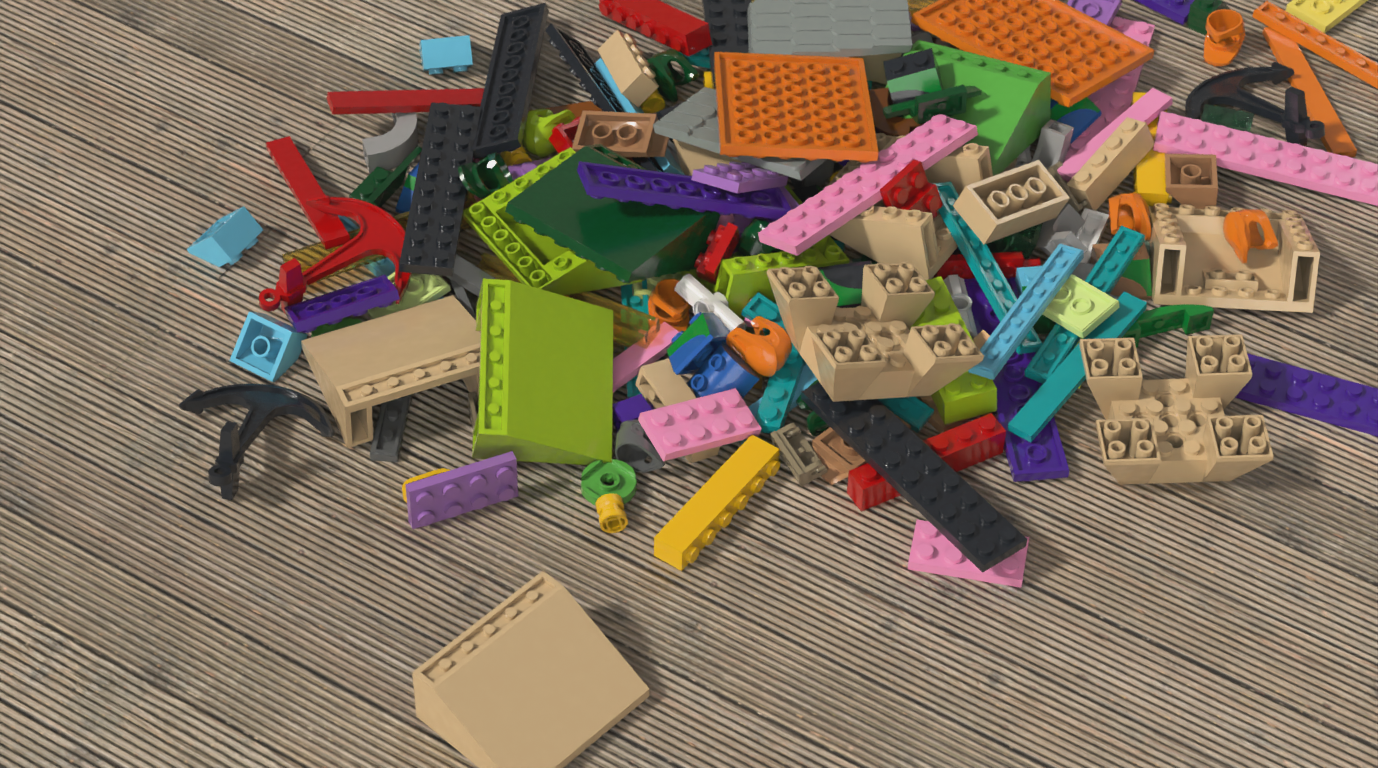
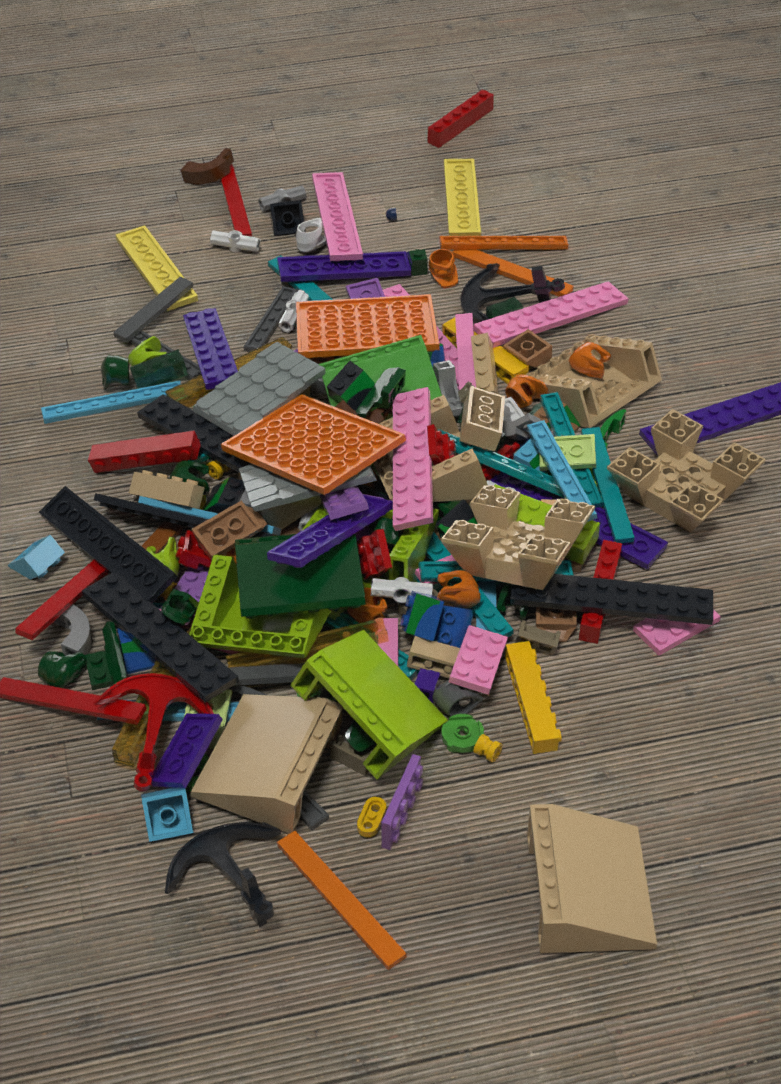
camera: 45 degrees left, 0 degrees up
(227, 238) = (49, 768): medium azure slope -> none
(313, 533) = (342, 900): none -> orange tile
(337, 164) = (60, 670): none -> dark green helmet

